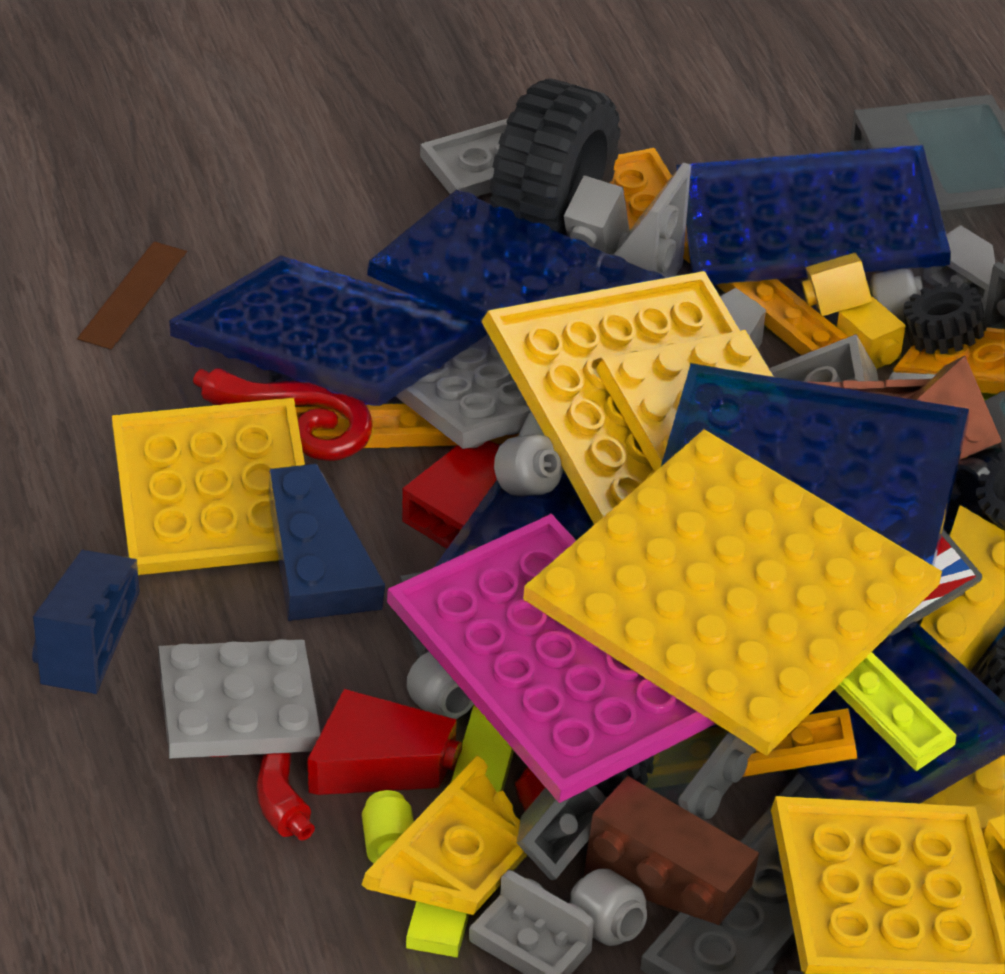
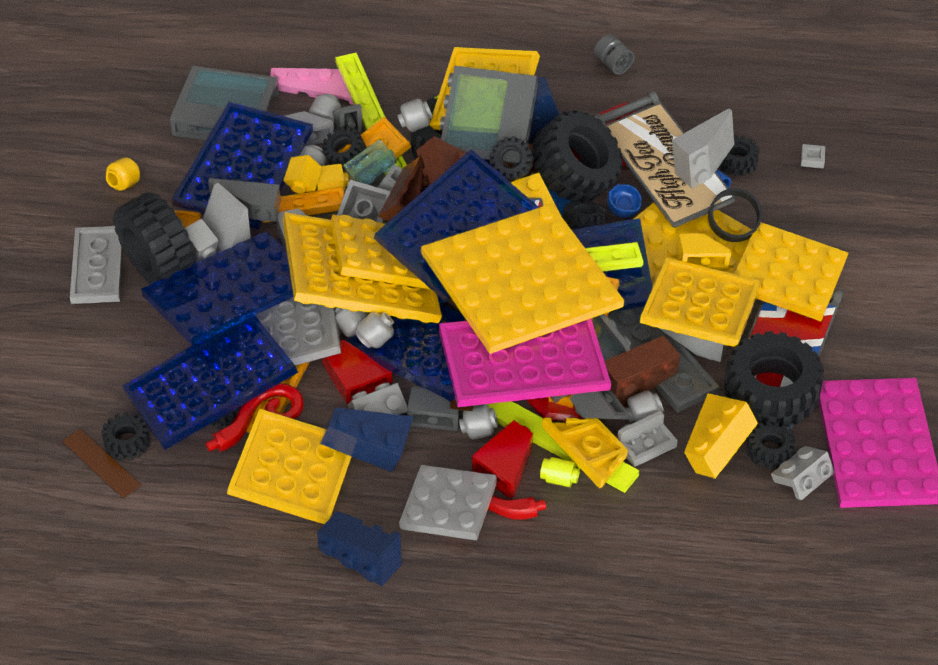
camera: 65 degrees left, 5 degrees up
(185, 277) = (128, 447): none -> black tyre
(401, 544) = (384, 400): none -> light grey bracket
(712, 111) = (122, 174): none -> yellow head
(726, 241) = (260, 198): none -> dark grey slope
(923, 351) = (370, 163): none -> clear light blue bracket

